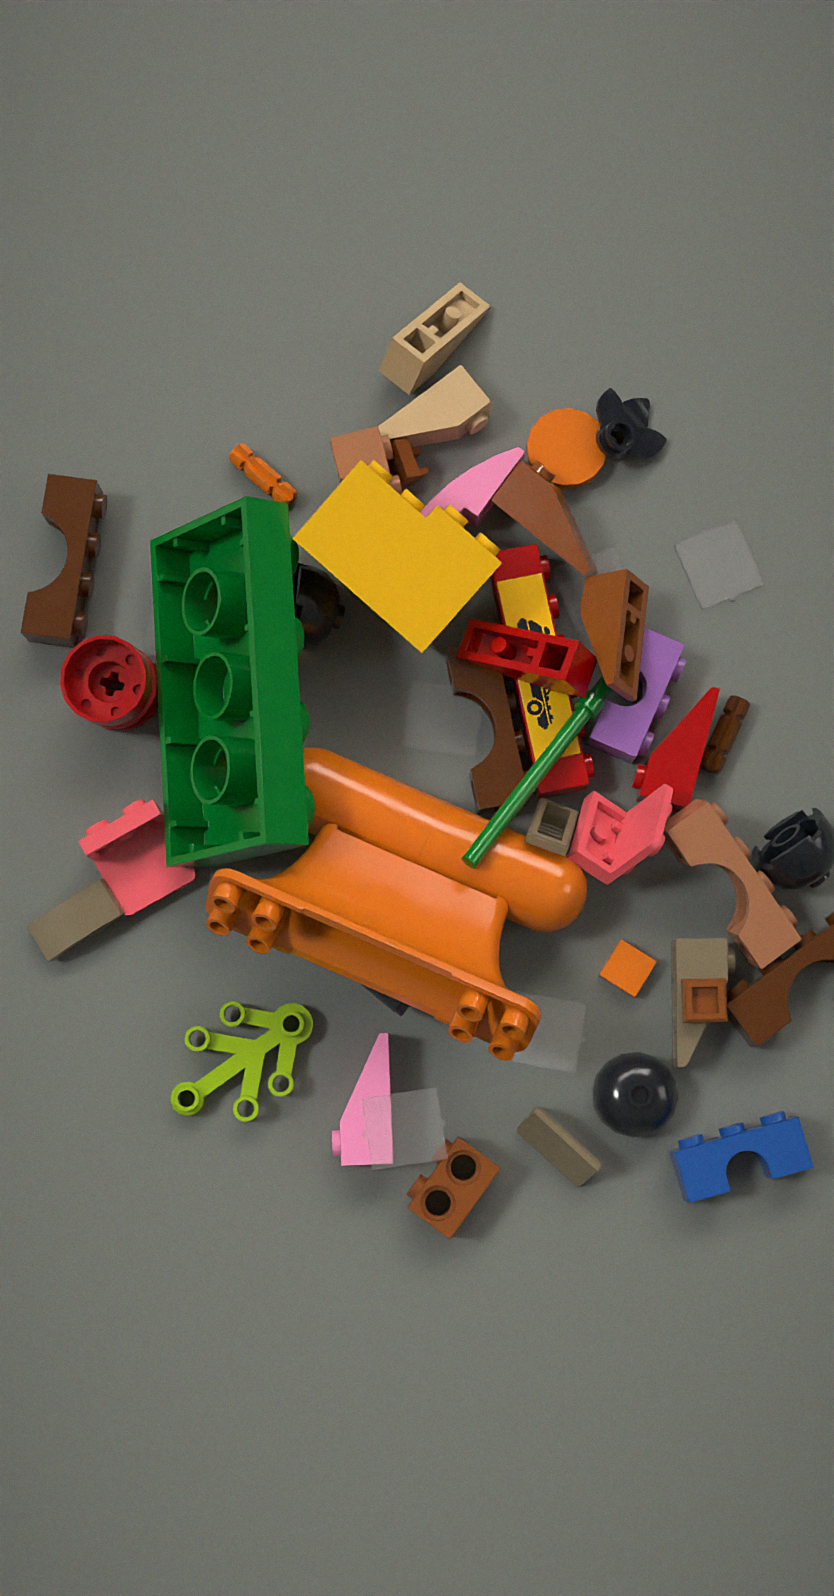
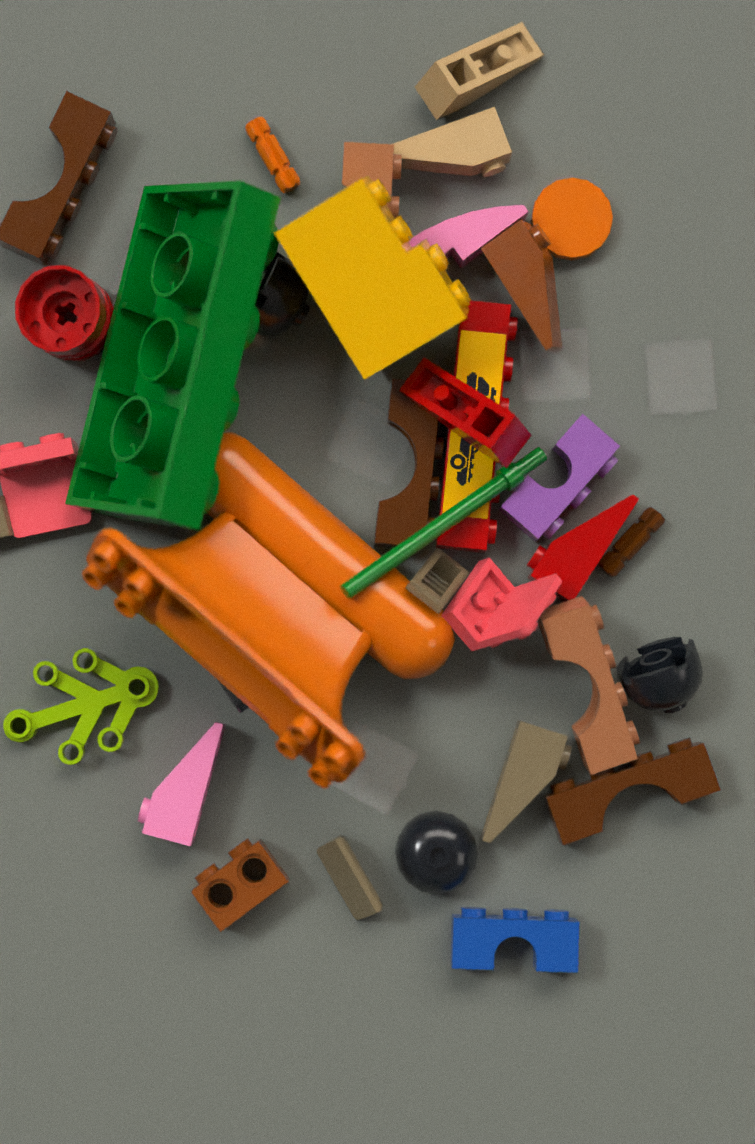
camera: 10 degrees right, 5 degrees up
(404, 1128) = (210, 817): clear piece -> none
(405, 464) = (410, 186): dark orange tile -> none
(615, 623) = (559, 405): dark orange slope -> none
(627, 968) = (467, 733): orange tile -> none
(628, 425) = (637, 213): black plate -> none
(704, 1000) = (526, 787): dark orange tile -> none

